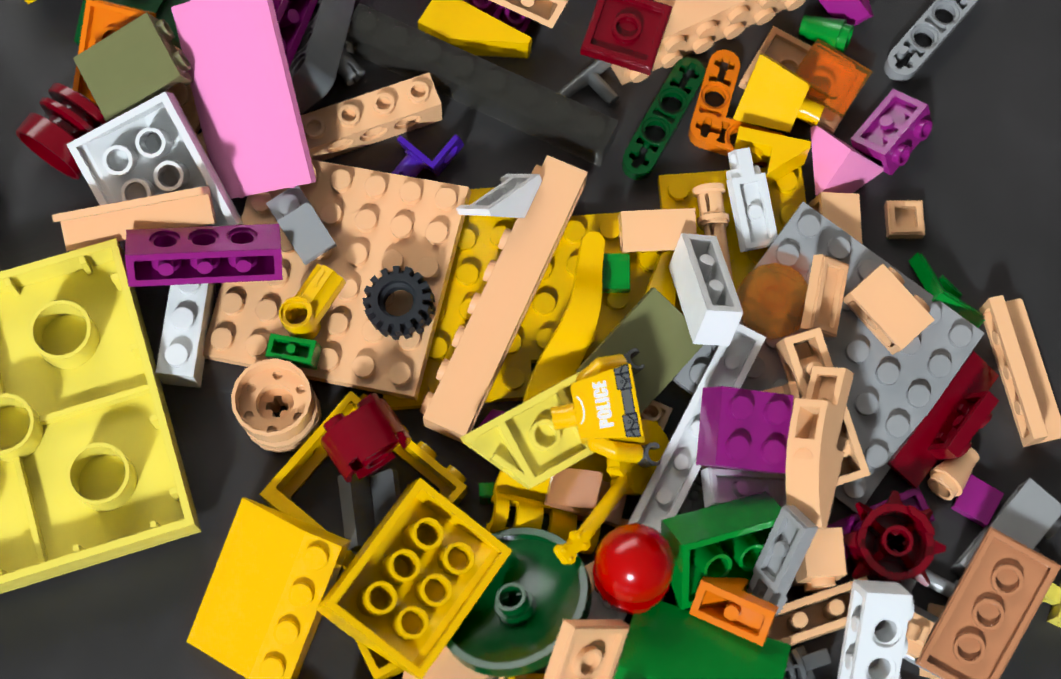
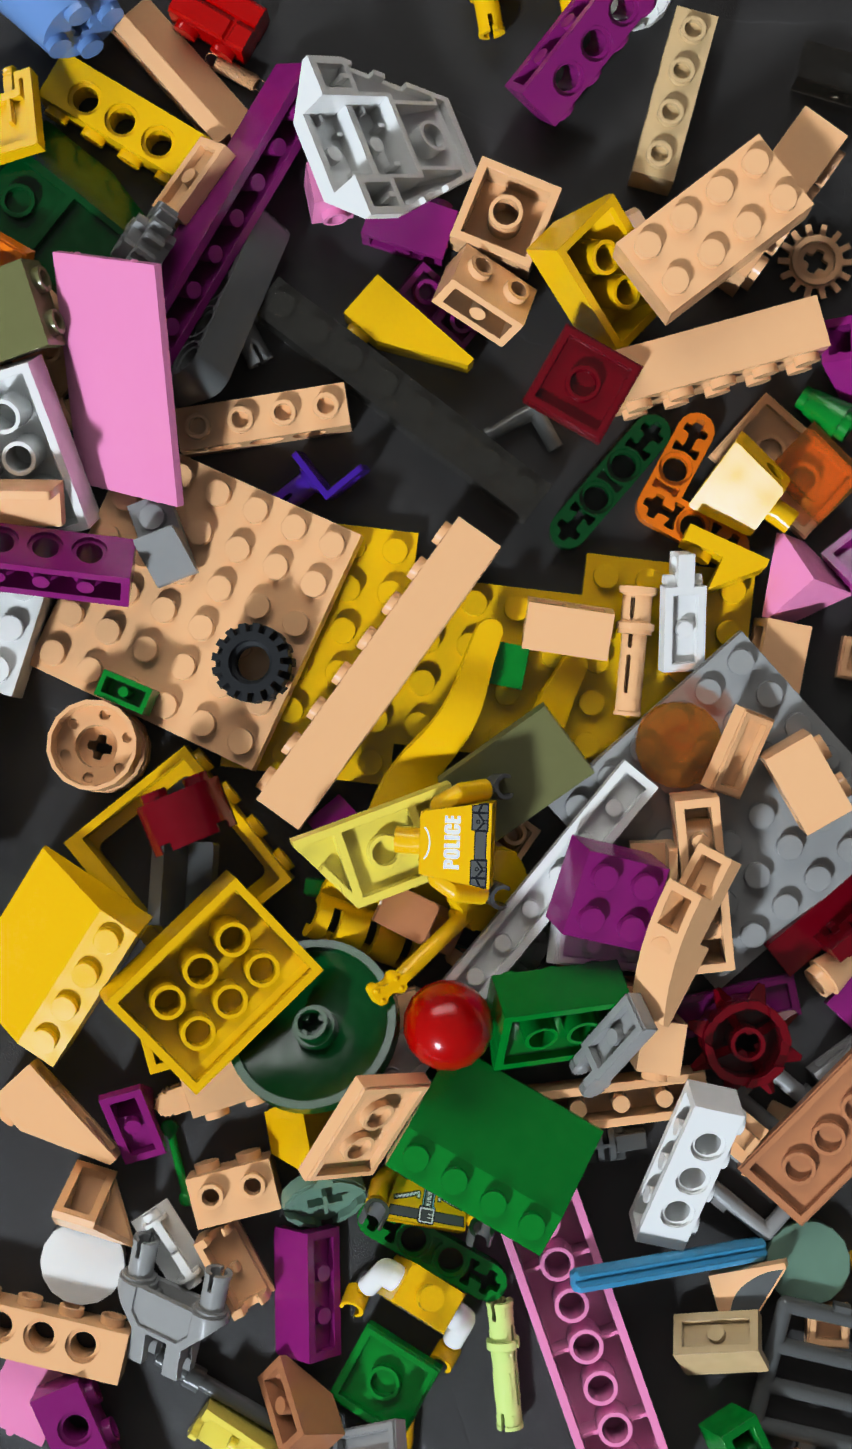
camera: 20 degrees right, 15 degrees up
(311, 300) = (160, 636): yellow piece -> none
(508, 199) = (398, 562): white slope -> none
(705, 290) = (602, 719): white brick -> none
(728, 606) = (541, 1079): orange slope -> none

